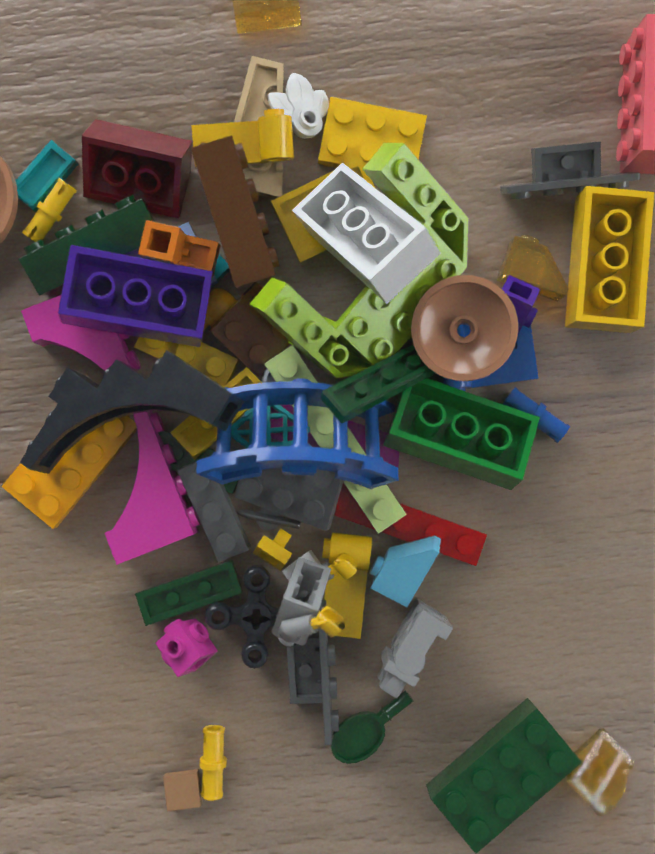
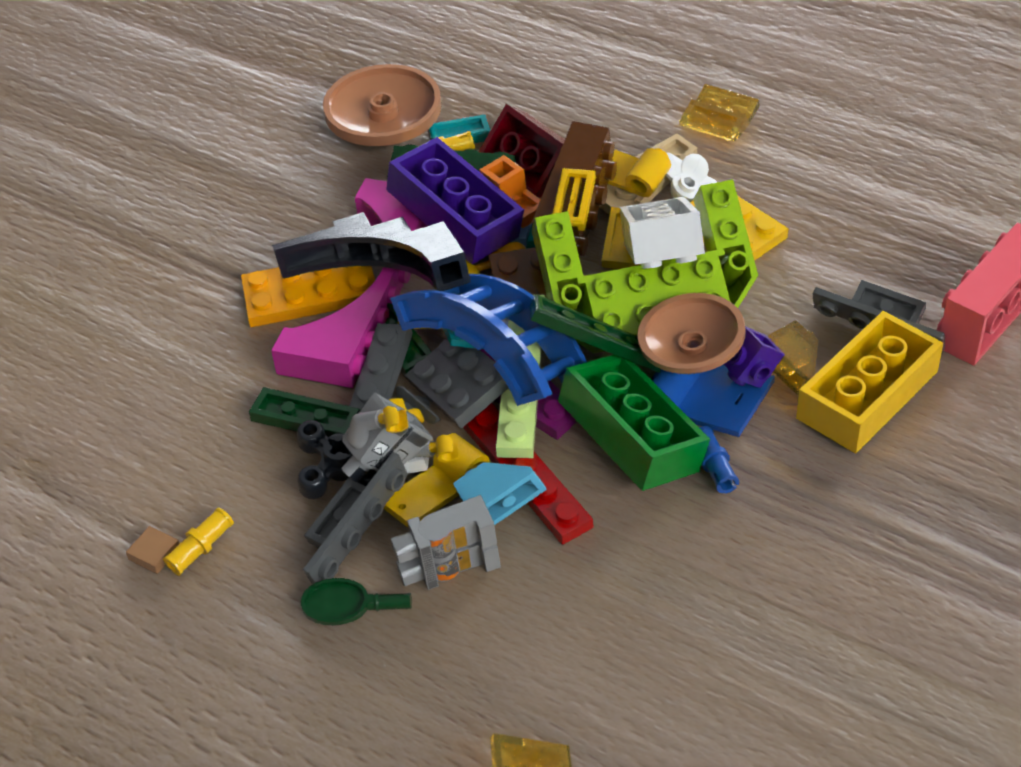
camera: 45 degrees right, 40 degrees down
(185, 646) = (265, 439): dark pink brick -> none
(246, 214) = (581, 220): none -> yellow tile
(502, 775) = (432, 705): dark green brick -> none

